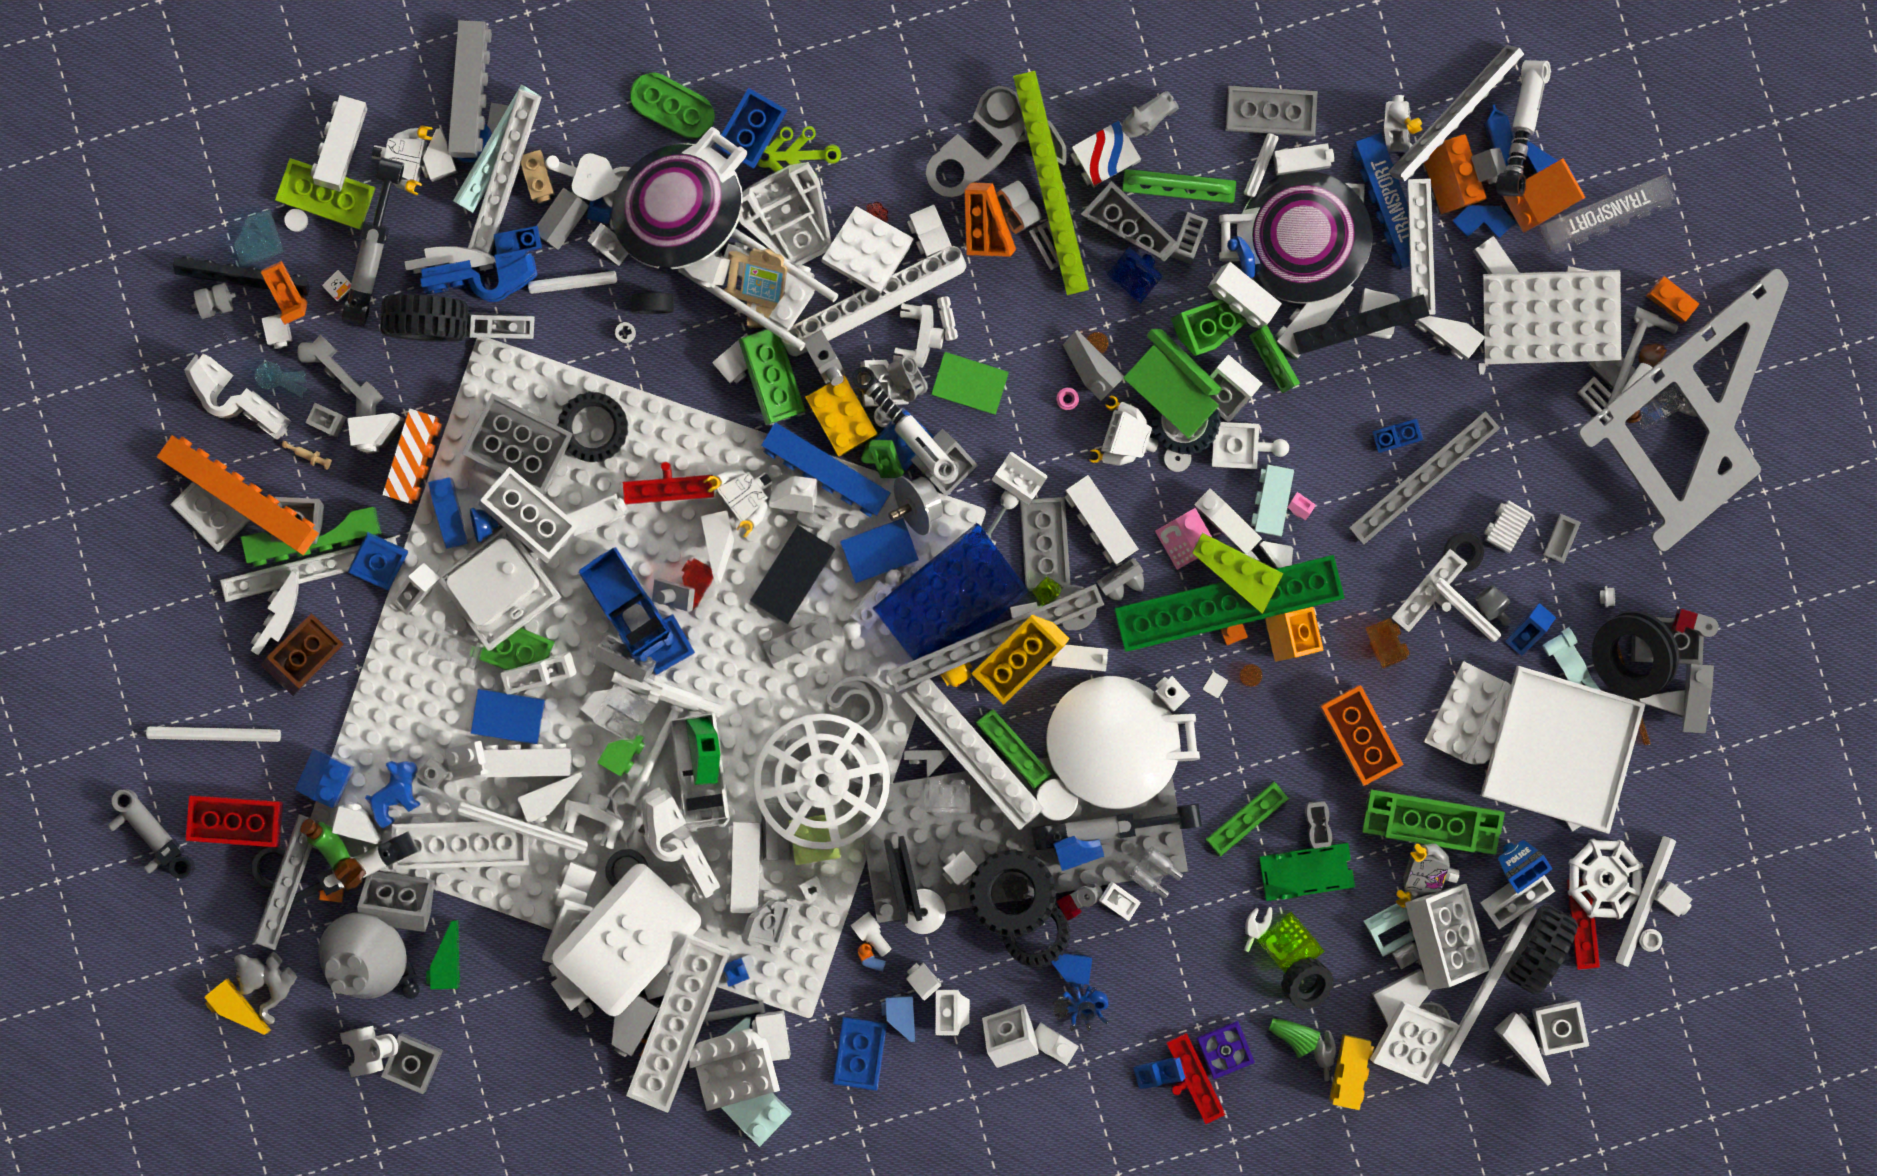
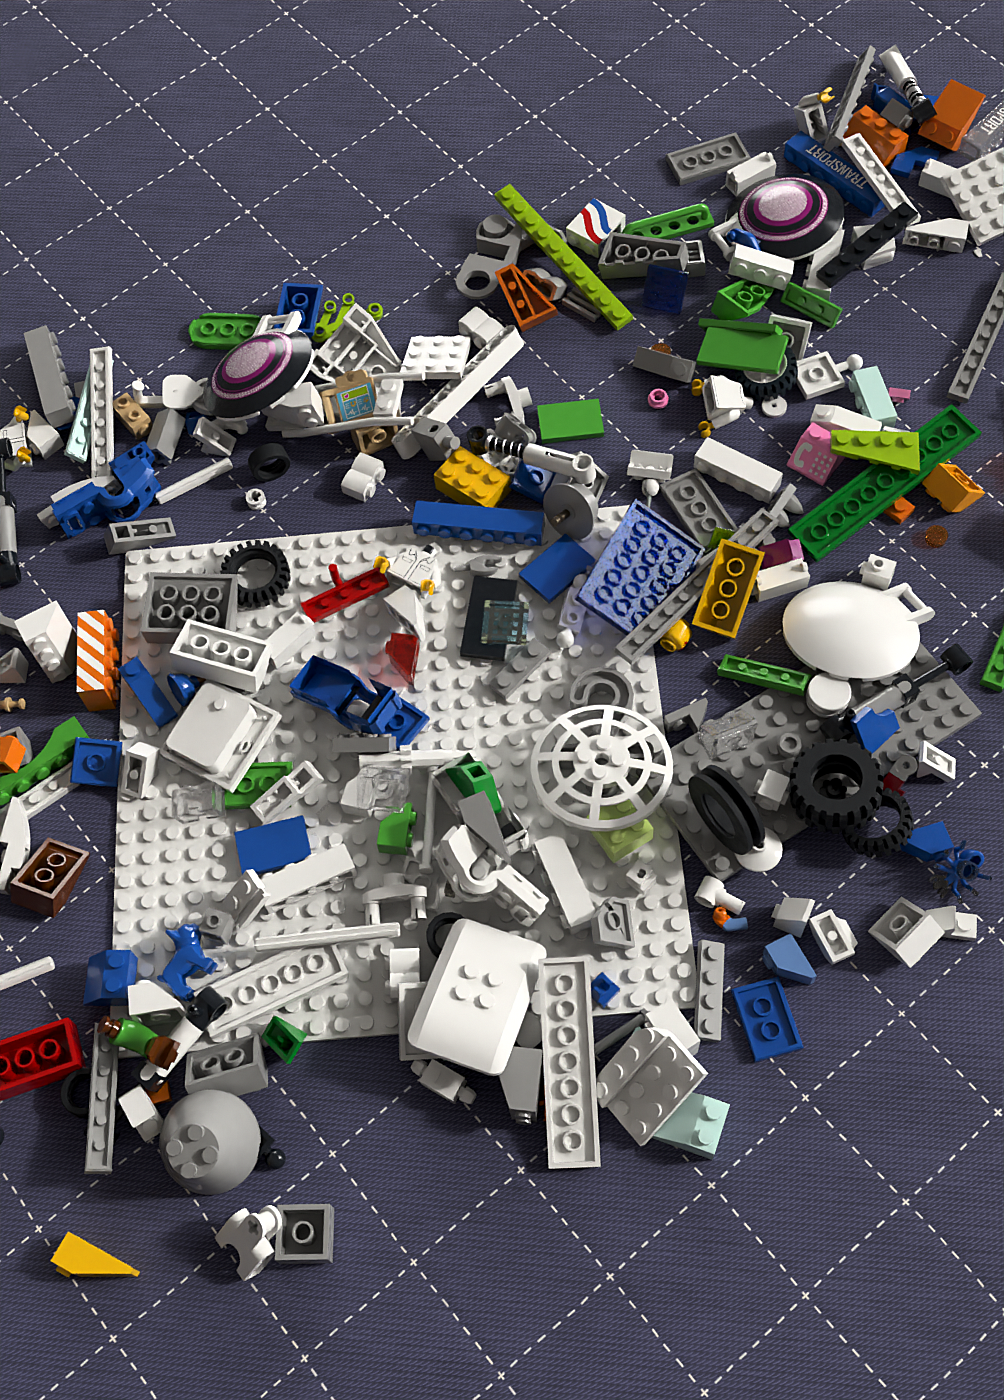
camera: 15 degrees left, 25 degrees down
(254, 974) = (98, 1215): light grey animal -> none
(314, 907) = (141, 1112): none -> white slope
(424, 318) = (66, 539): black tyre -> none
(445, 966) = (301, 1113): green slope -> none
(454, 898) = (283, 1038): none -> green slope
(546, 799) = (340, 903): white slope -> none
(673, 594) = (387, 671): light grey tile -> none
(691, 798) = (481, 821): none -> light grey slope
(771, 376) = (396, 472): bright green tile -> none
(773, 844) = (580, 843): light grey piece -> none
(795, 494) = (460, 549): white slope -> none
(804, 590) = (505, 622): none -> clear light blue tile
(823, 1010) = (709, 990): none -> light grey plate
(877, 210) = (429, 328): clear red plant -> none
(884, 456) = (525, 492): bright green plate -> none
(947, 318) = (525, 381): white axle -> none
(973, 752) = (730, 688): white plate -> none
(998, 829) = (789, 745): none -> light grey tile
(1093, 632) = (781, 552): none -> magenta slope
(1149, 115) = (614, 185): light grey animal -> none
(1151, 871) = (951, 720): clear piece -> none
(1215, 685) = (910, 557): white sticker -> none
(1261, 165) = (721, 192): white axle -> none
(1397, 435) = (944, 319): blue slope -> none

